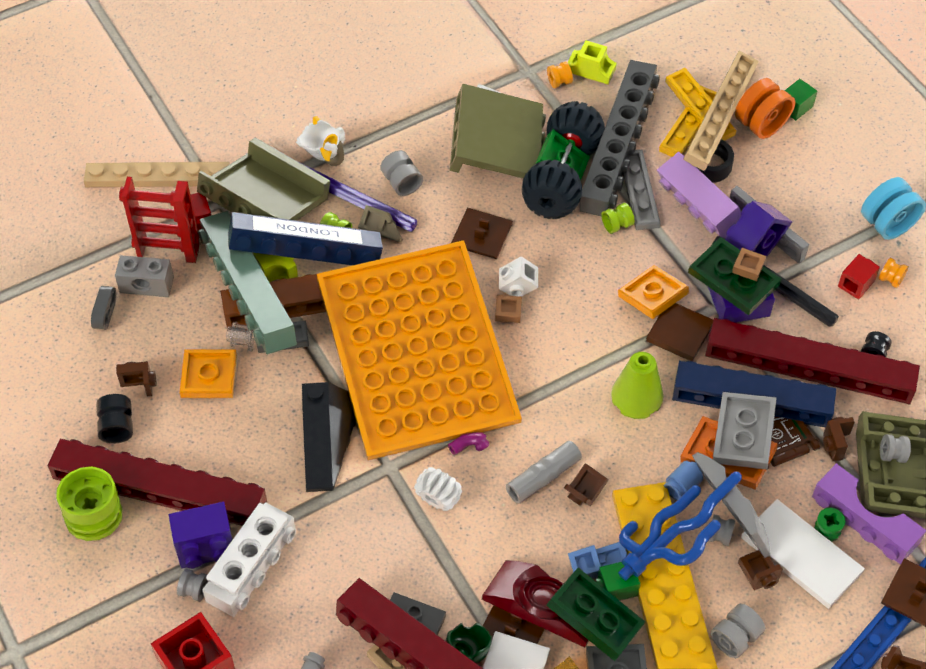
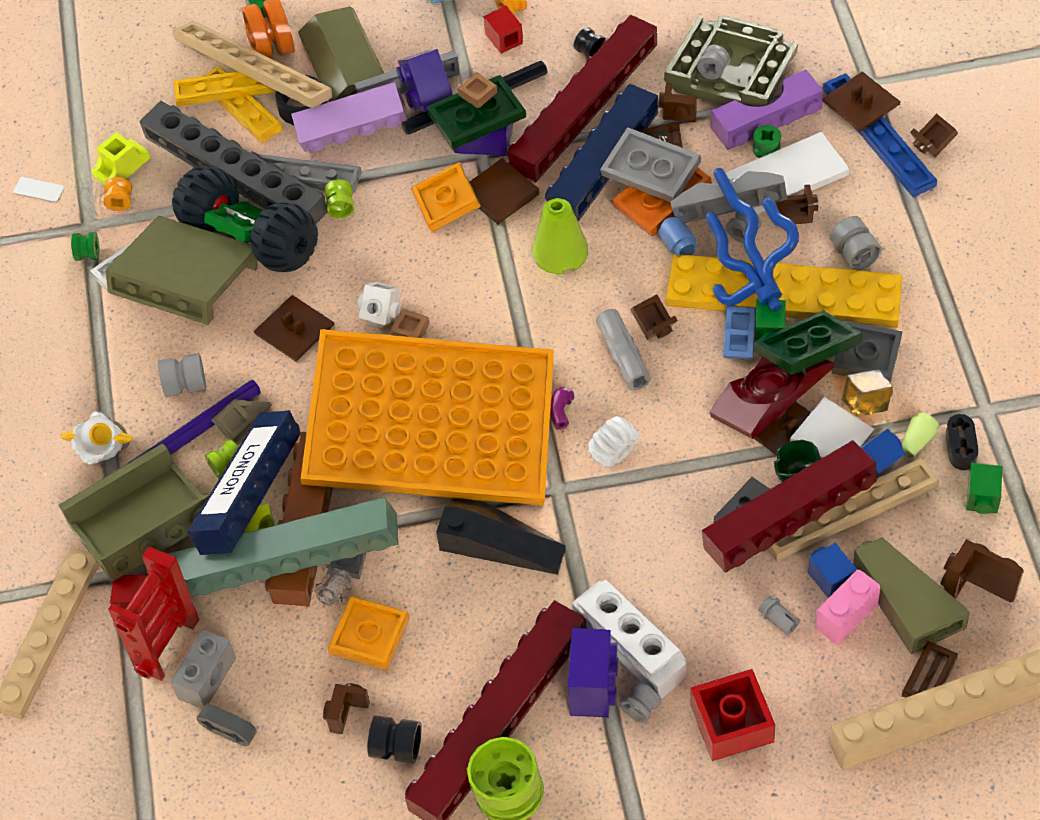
camera: 65 degrees left, 0 degrees up
(501, 72) = (85, 246): none -> green wheel
(549, 28) = (38, 189): none -> white sticker
(774, 168) = (339, 50): none -> olive slope

